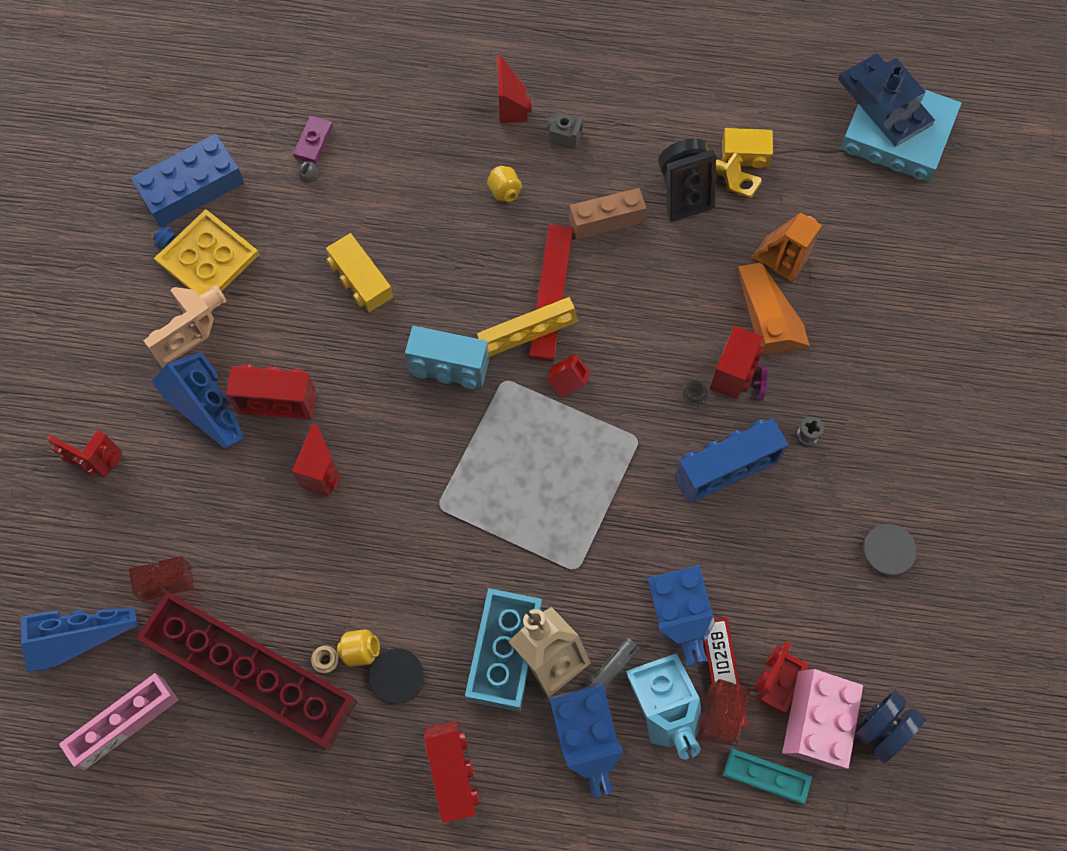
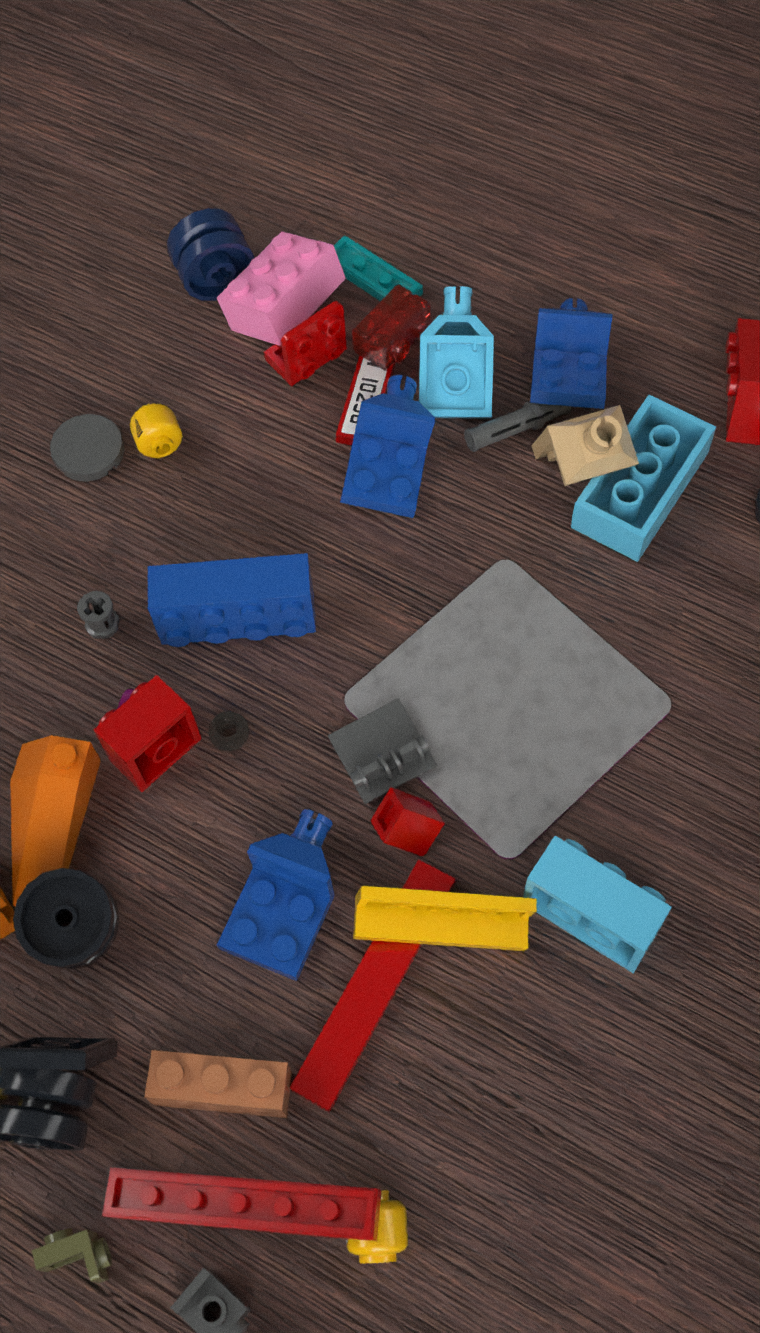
camera: 155 degrees left, 5 degrees down
(358, 273) = (704, 1140): yellow brick -> none
(571, 168) = (243, 1204): none -> red tile
(600, 411) = (382, 750): none -> dark grey hinge
(618, 311) = (282, 899): none -> blue plate
(640, 129) = (65, 1248): none -> olive bracket
(724, 254) = (49, 900): none -> black wheel
(848, 572) = (155, 428): none -> yellow head

